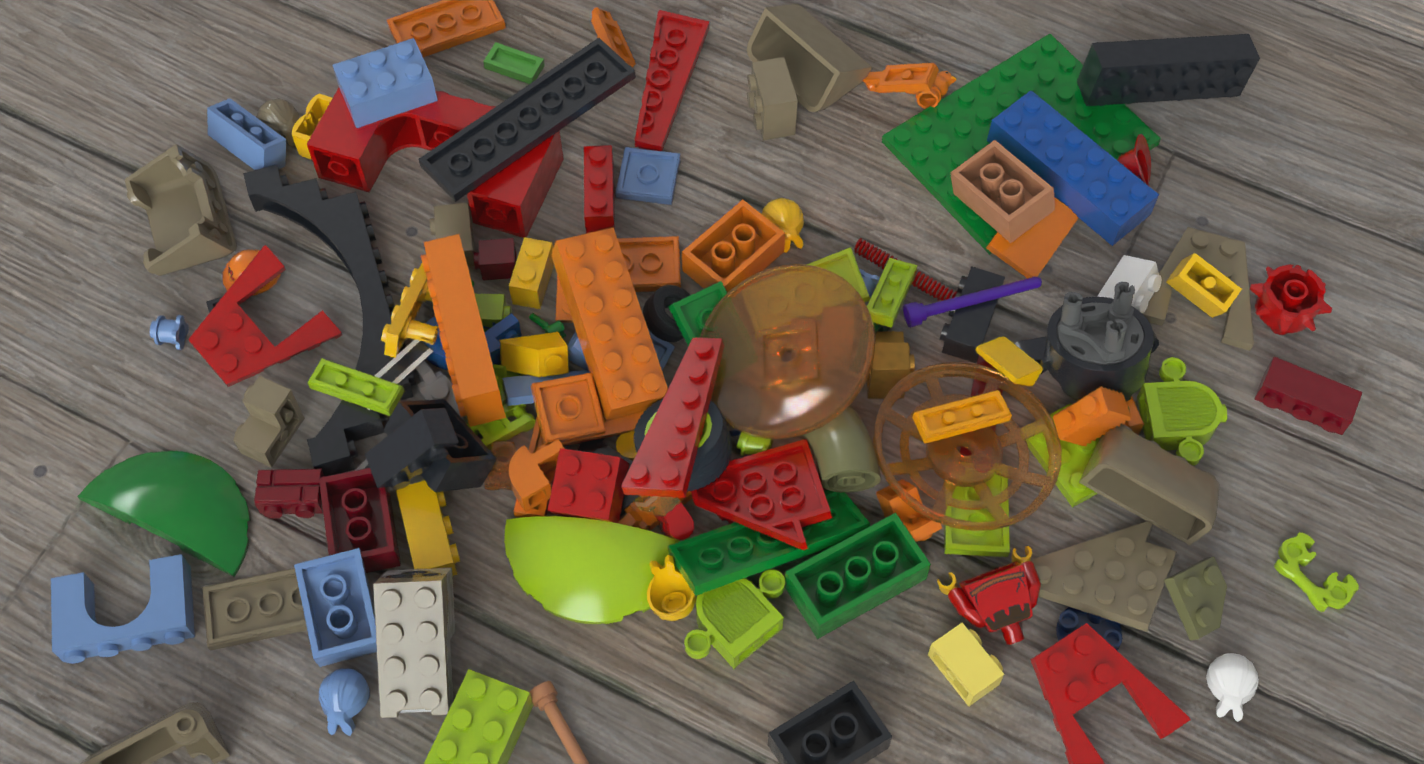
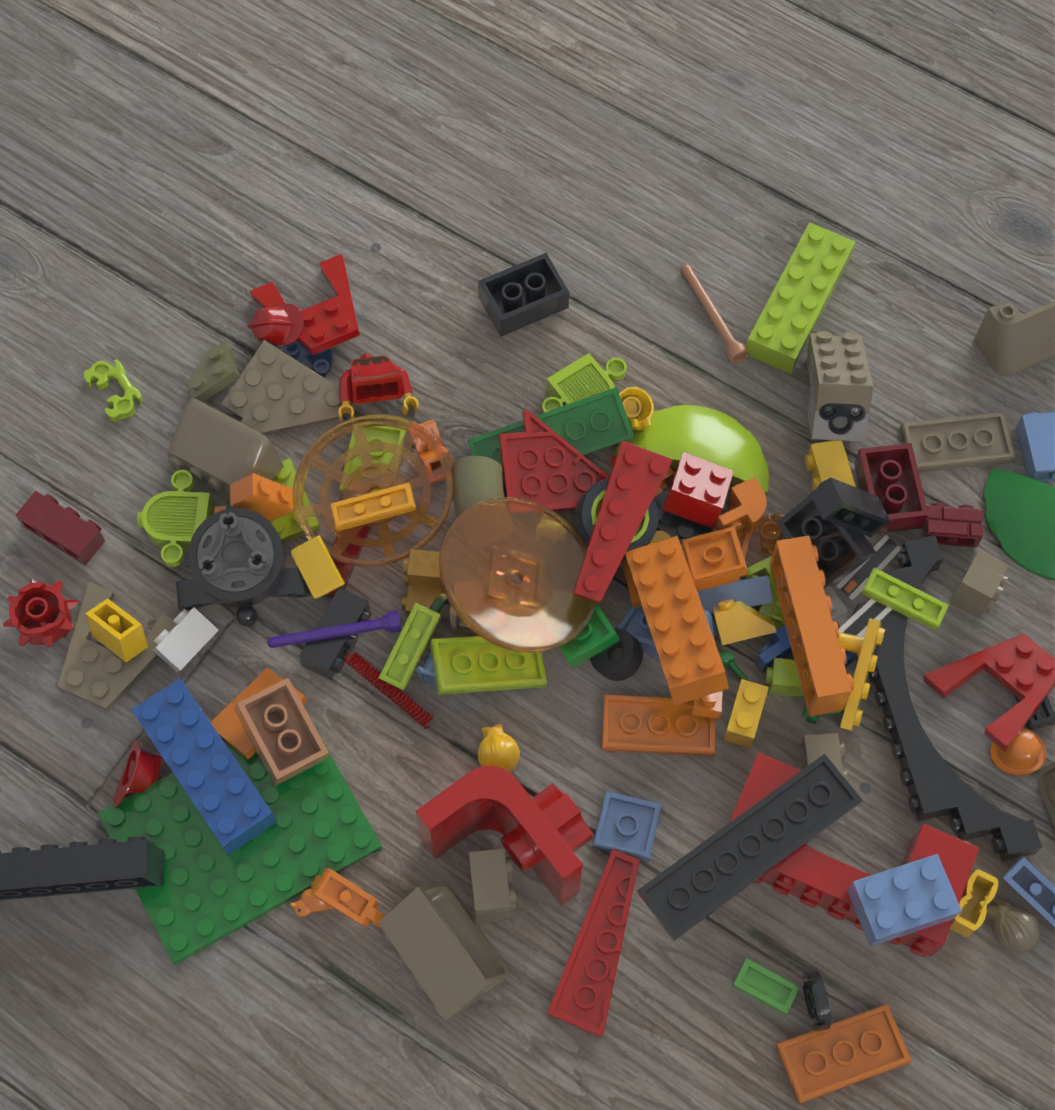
camera: 175 degrees left, 5 degrees up
(337, 607) = (902, 412): medium blue slope -> none
(342, 697) = (891, 364): medium blue piece -> none
(469, 41) = (816, 999): none -> black tile
(496, 258) = (780, 735): dark red brick -> none
(598, 188) = (678, 801): red brick -> none
(611, 34) = (657, 1002): orange hinge -> none
(733, 248) = (551, 712): orange brick -> none
(766, 134) = (536, 830): none -> red piece
(856, 575) = (482, 406): green brick -> none
(966, 663) = (409, 342): light yellow brick -> none
(1142, 659) = (278, 324): none -> red piece
(1233, 682) = (209, 314): white piece -> none

